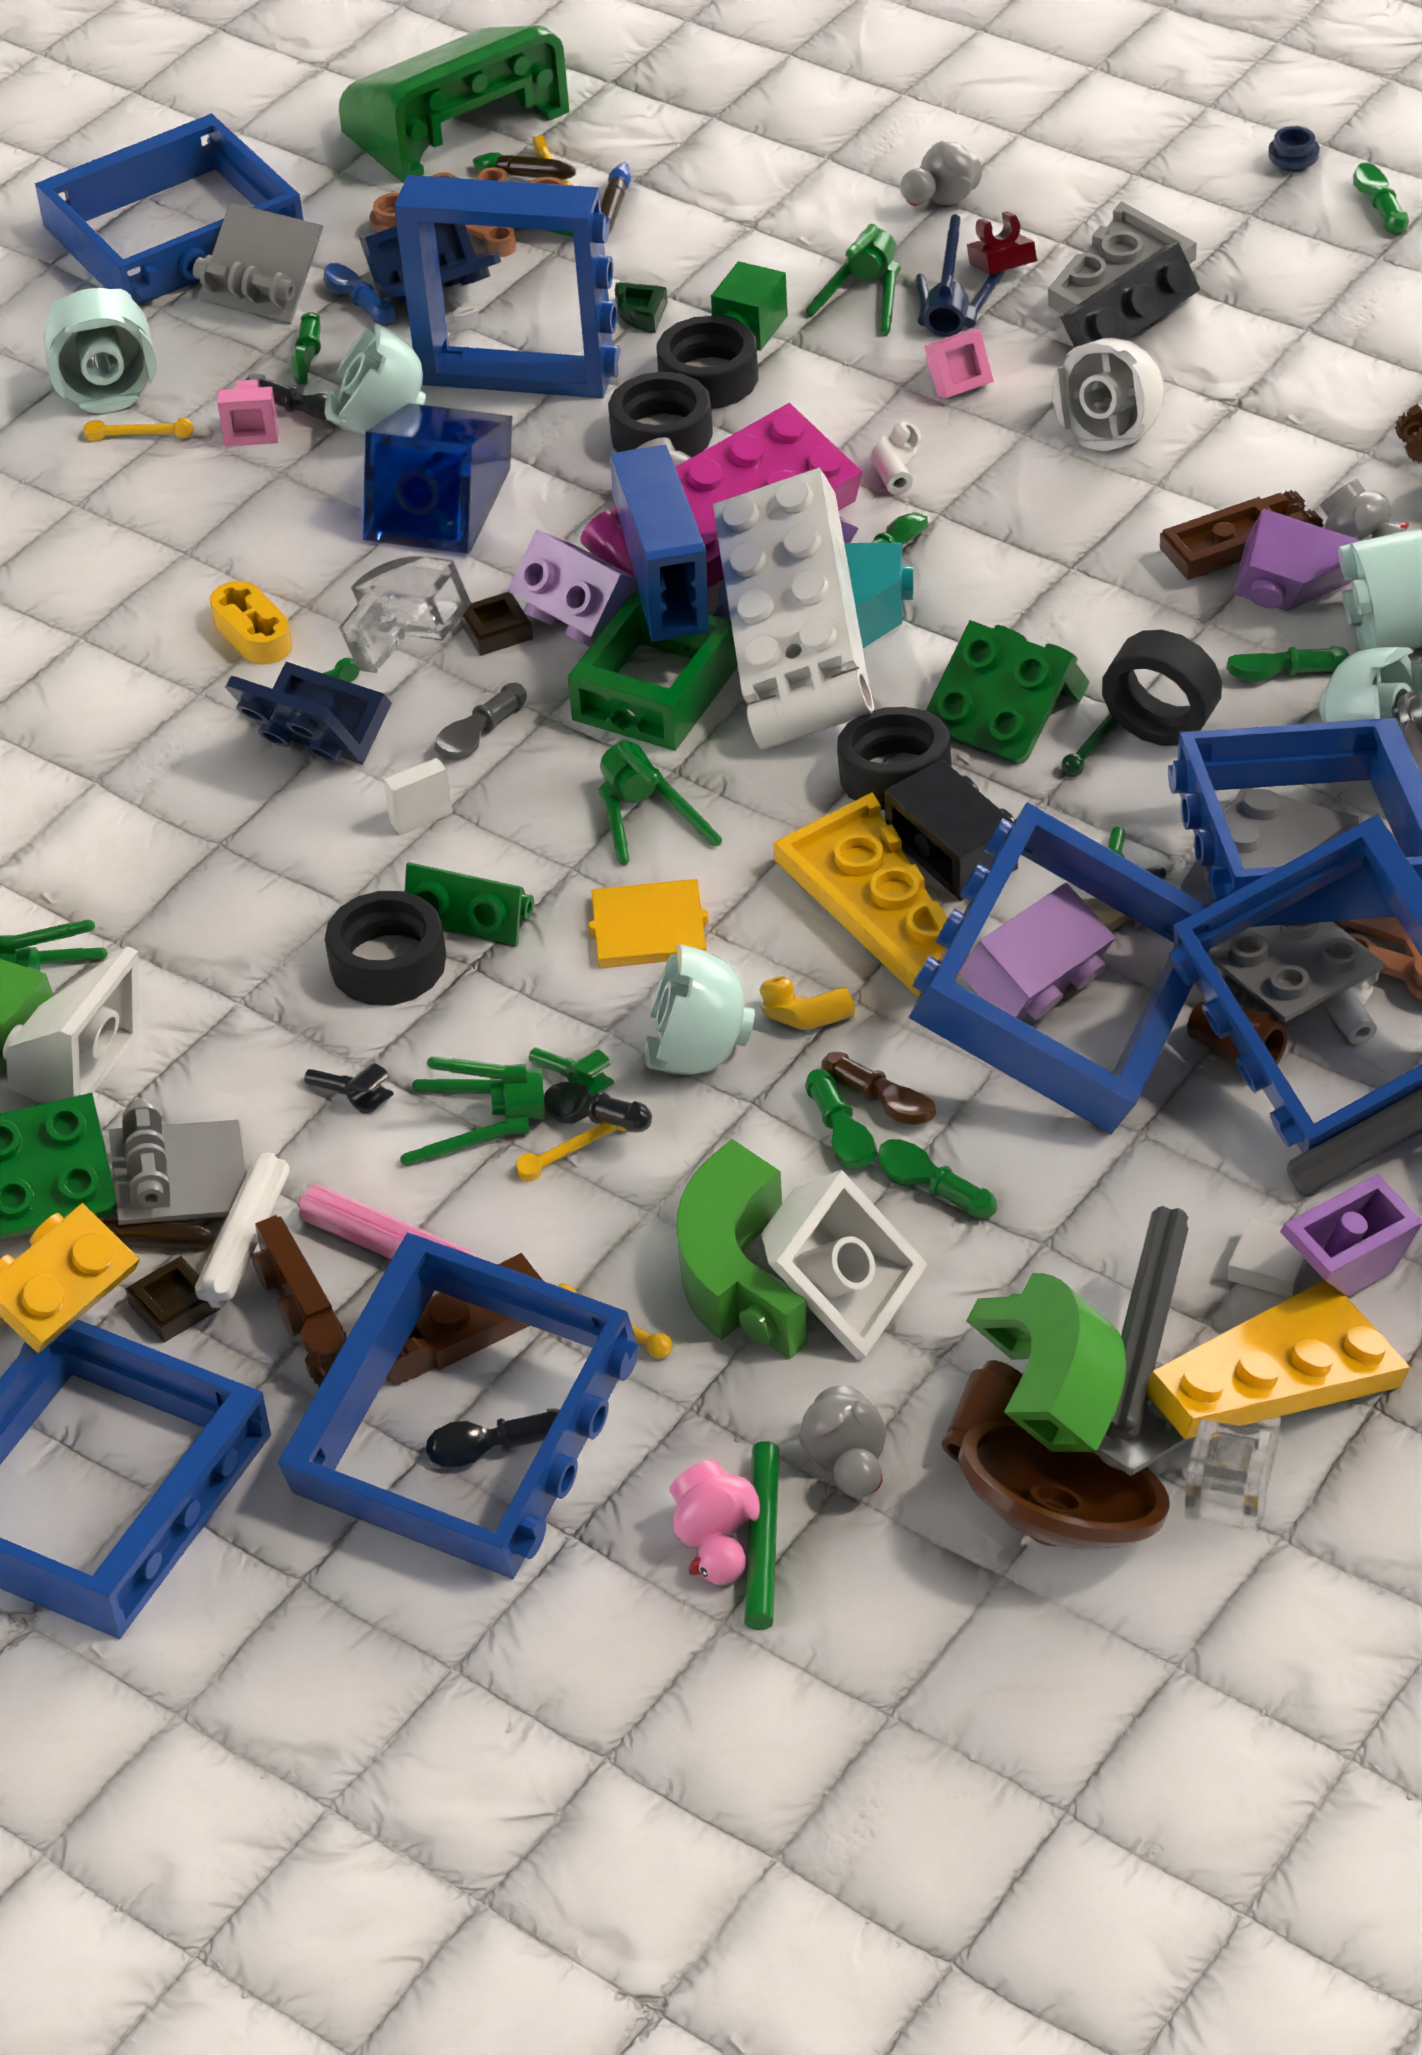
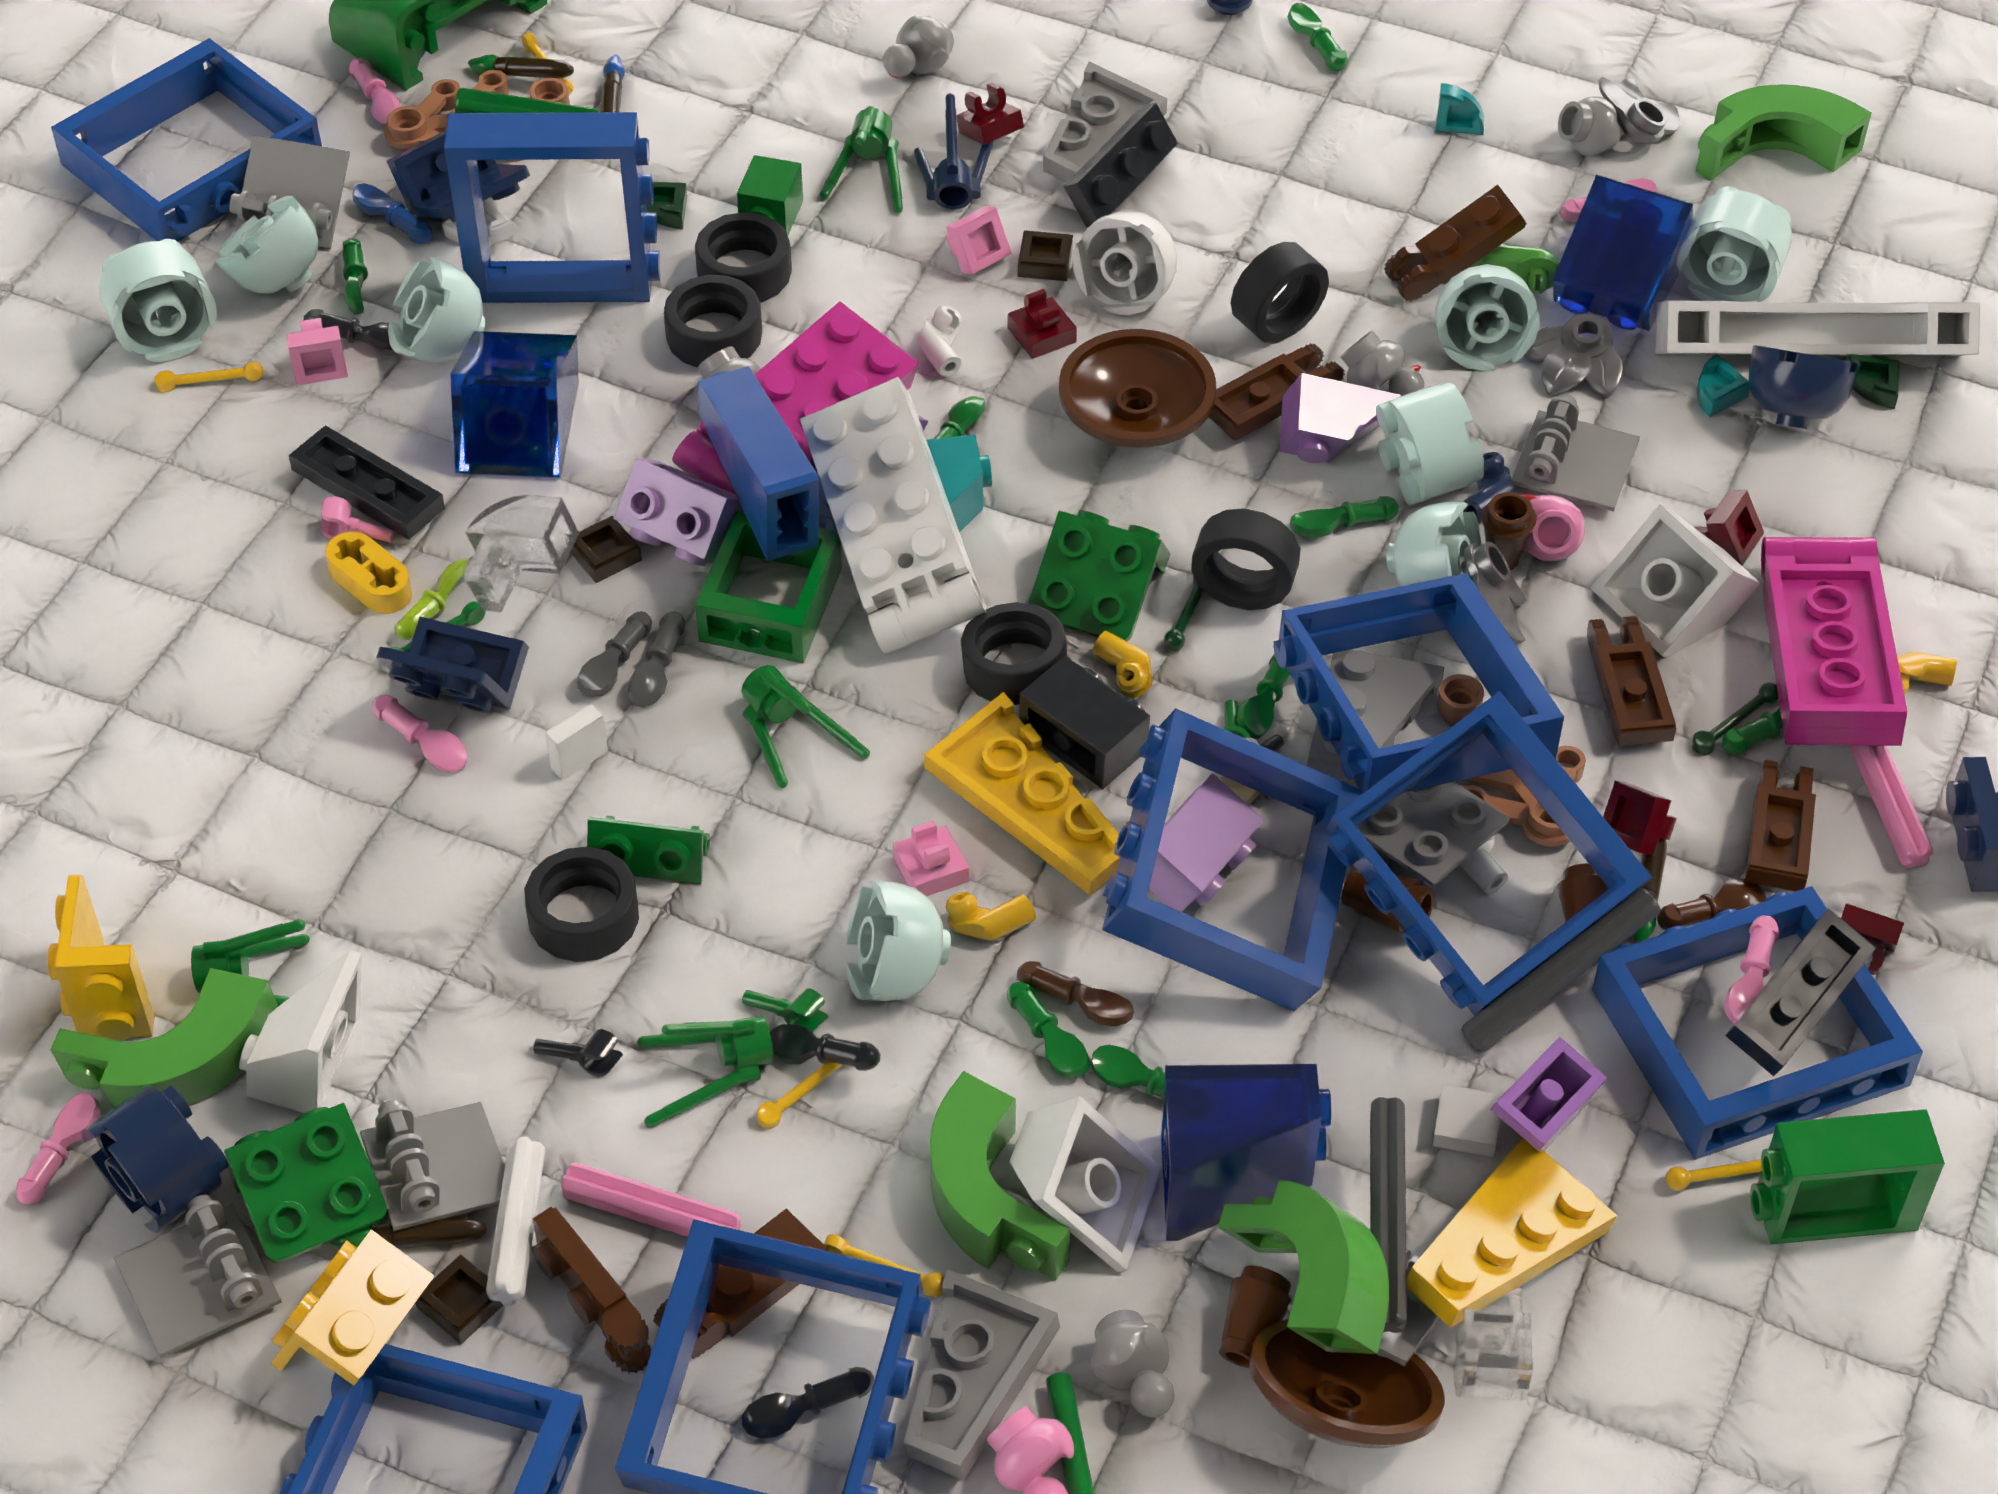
camera: 15 degrees left, 5 degrees up
(226, 314) = (272, 250): none -> light aqua cylinder
(233, 566) = (337, 520): none -> bright pink hand
(269, 538) = (367, 482): none -> black plate
(280, 790) = (438, 747): none -> bright pink piece
(306, 654) = (431, 601): none -> lime piece
(369, 175) = (374, 89): none -> bright pink piece
(510, 746) = (649, 679): none -> dark grey piece
(646, 922) = (821, 846): yellow piece -> none
(683, 1417) = (974, 1371): none -> light grey wing
(758, 945) = (931, 859): none -> bright pink tile
(995, 1223) = (1235, 1135): none -> clear blue slope
(1007, 451) = (1041, 325): none -> dark red tile
(1018, 780) = (1131, 664): none -> yellow arm
(1026, 386) = (1045, 255): none -> dark brown tile
(1088, 514) = (1137, 388): none -> reddish brown dish
(1144, 840) = (1257, 712): none -> green piece
(1247, 416) = (1263, 279): none -> black tyre

